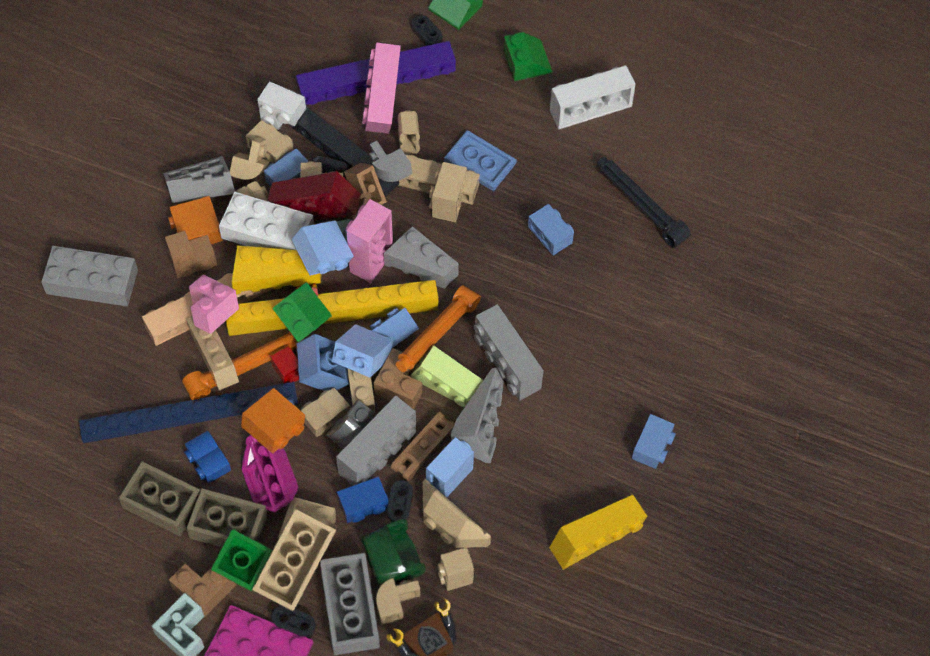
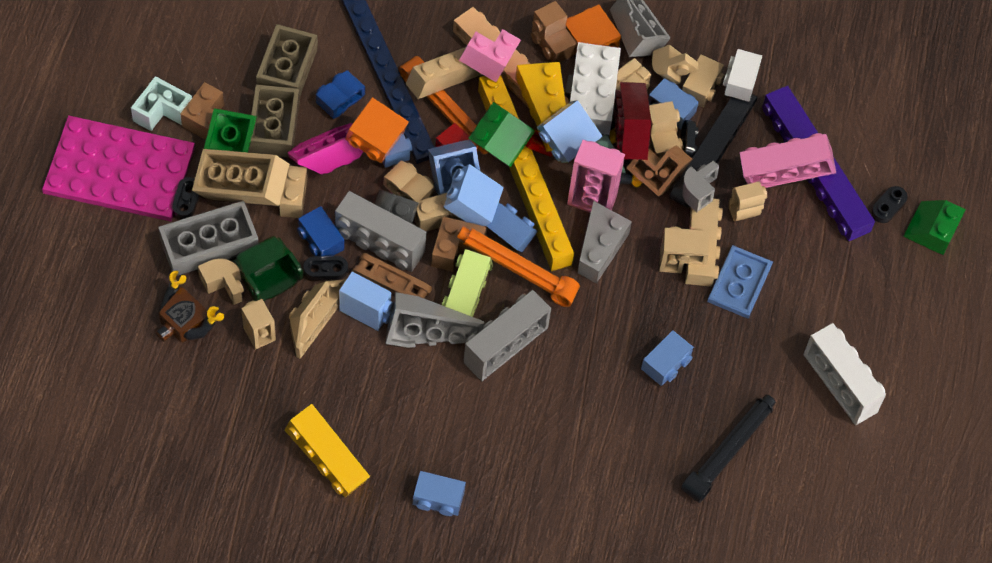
camera: 75 degrees right, 0 degrees up
(526, 56) = (884, 305): green slope -> none

